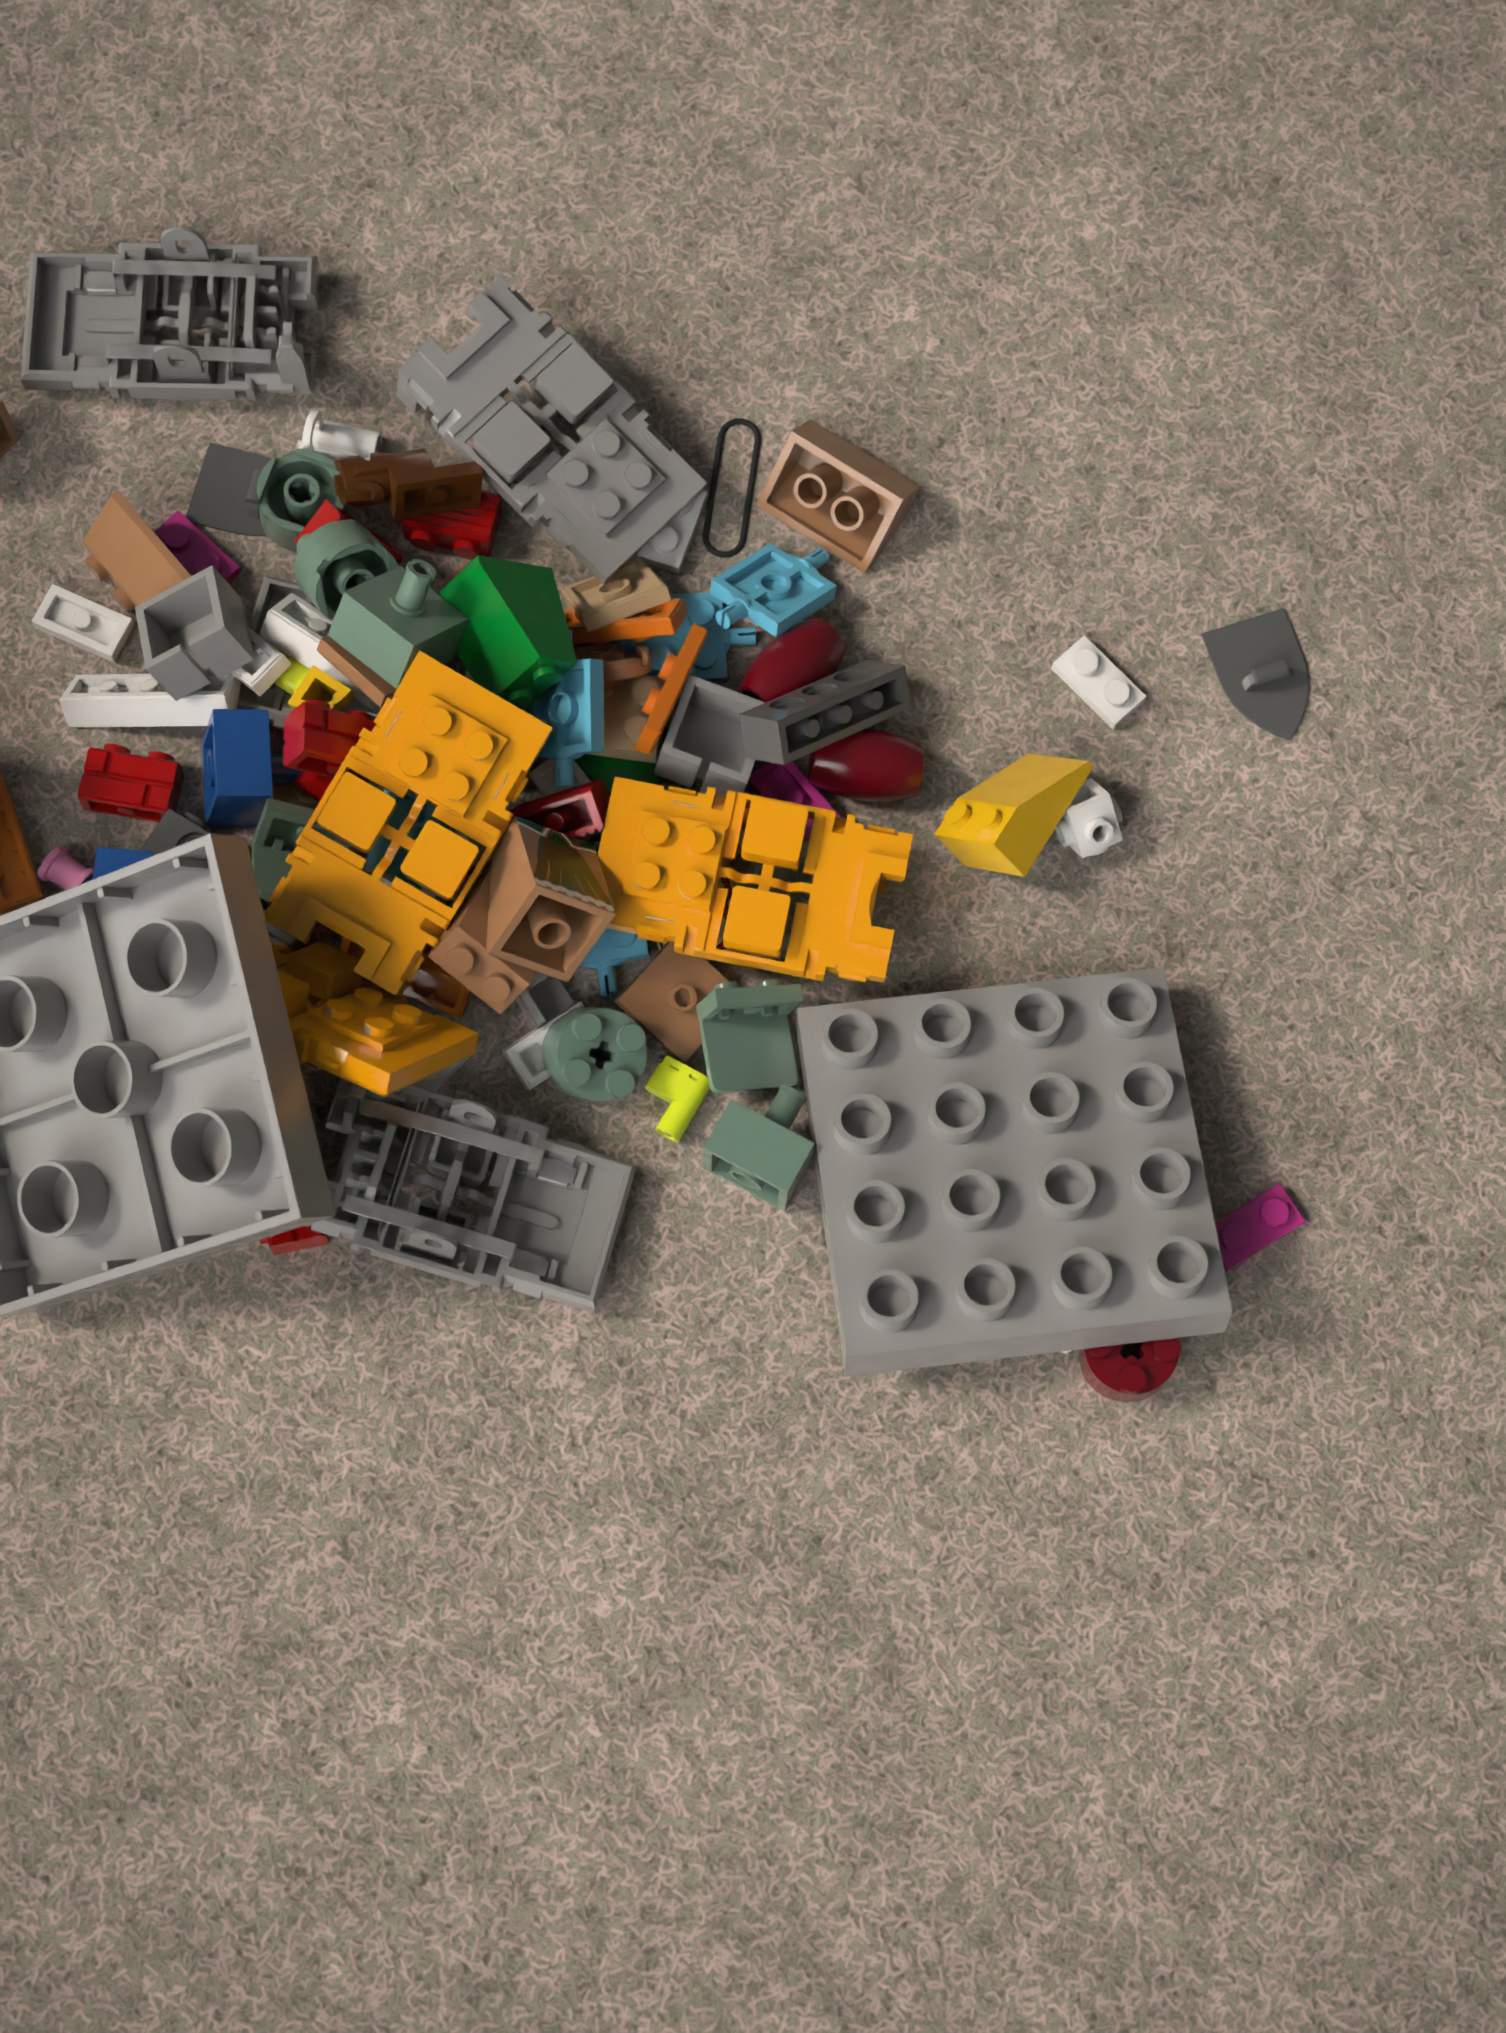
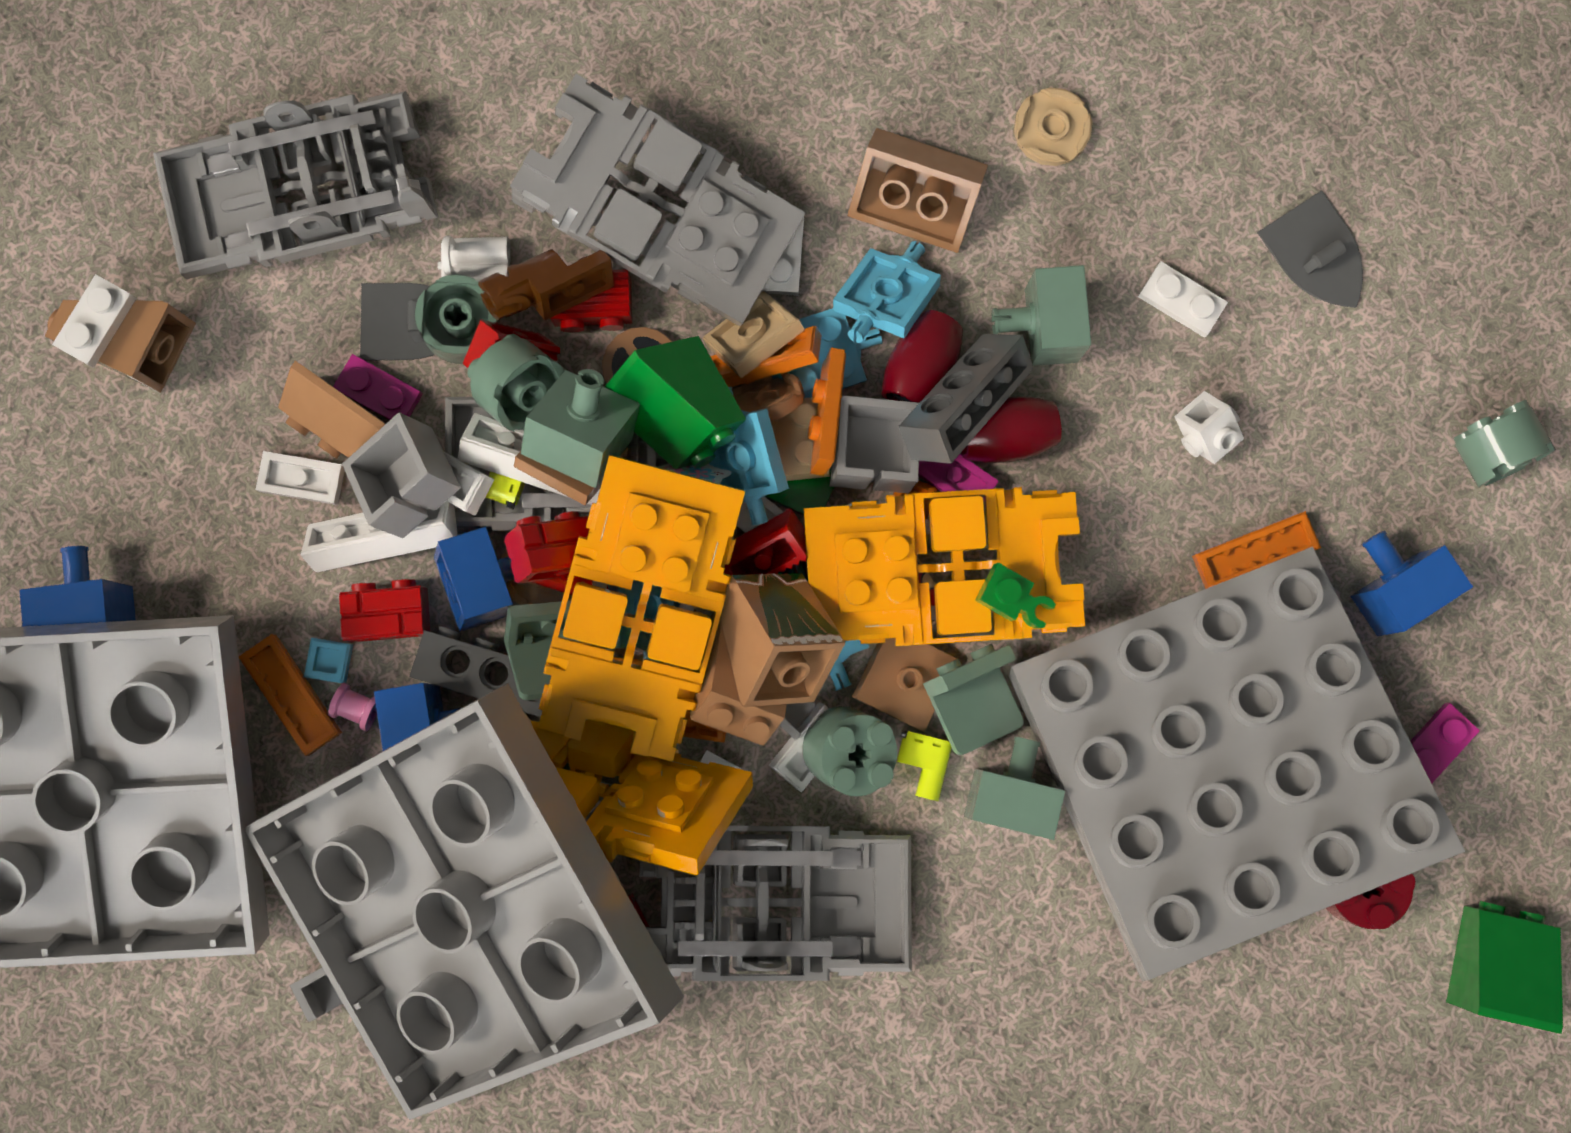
camera: 10 degrees left, 10 degrees up
(54, 821) = (328, 660): none -> medium azure tile
(321, 686) = (528, 501): yellow brick -> none
(712, 491) = (806, 207): black piece -> none
(808, 915) = (1009, 595): none -> green plate
(943, 657) = (1053, 316): none -> sand green brick
(1005, 483) = (1046, 138): none -> tan tile
(1012, 813) = (1148, 439): yellow slope -> none
(1108, 958) = (1255, 549): none -> orange plate
(1258, 1039) = (1409, 587): none -> blue brick
(1265, 1480) = (1508, 968): none -> green slope
(1407, 917) = (1503, 444): none -> sand green brick

